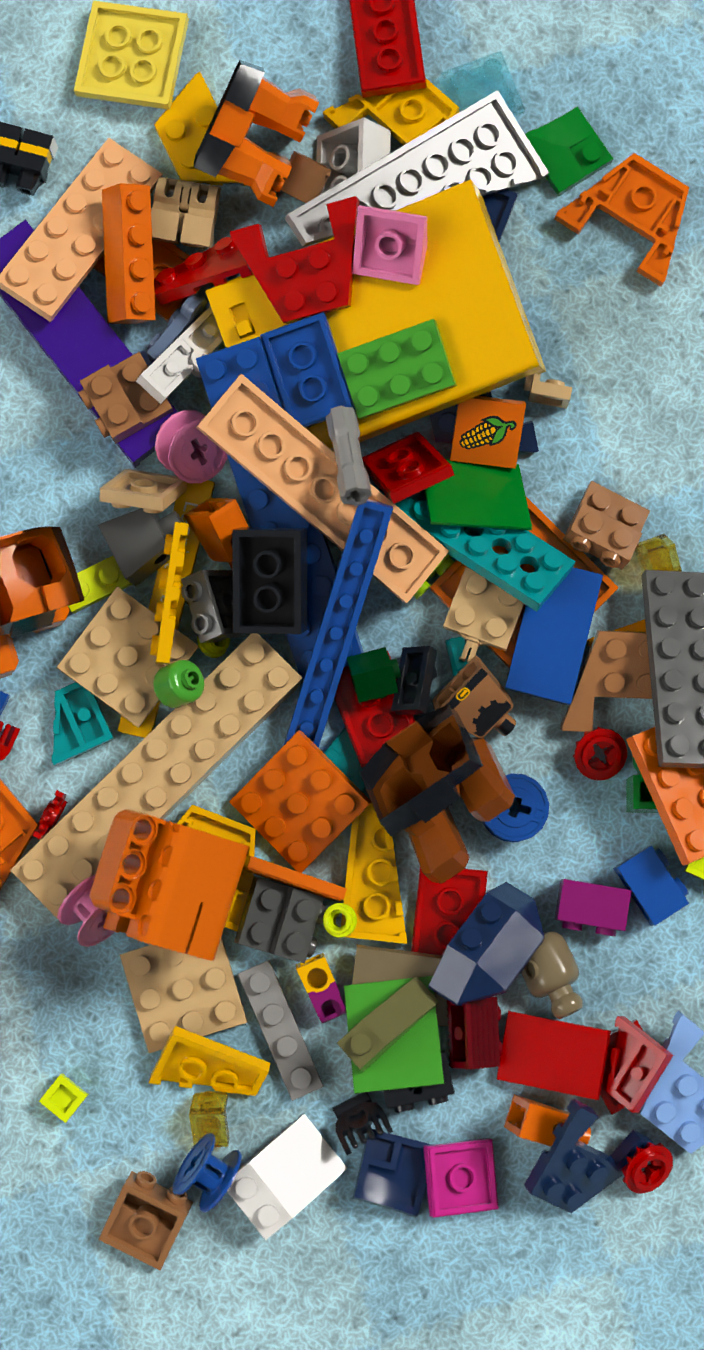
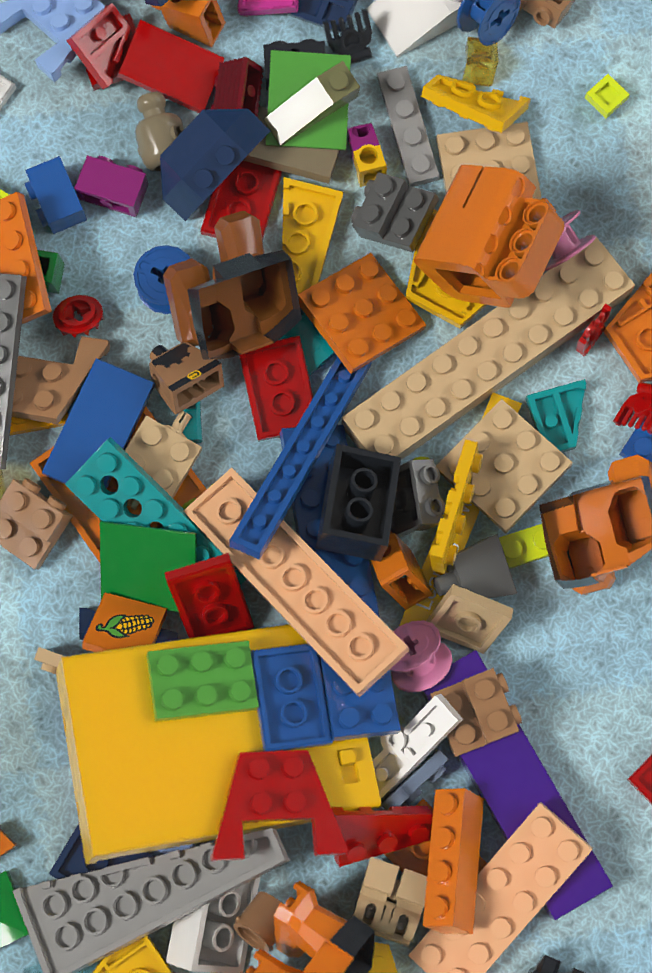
camera: 170 degrees left, 5 degrees down
(178, 683) = (458, 422): bright green head -> none
(294, 878) = (375, 243): orange tile -> none
(329, 920) = (346, 196): neon yellow plate -> none
(351, 476) = (264, 624): light grey axle -> none
(373, 674) = (274, 410): dark green brick -> none
(390, 245) = (187, 800): bright pink slope -> none
(414, 686) = (237, 402): black tile -> none

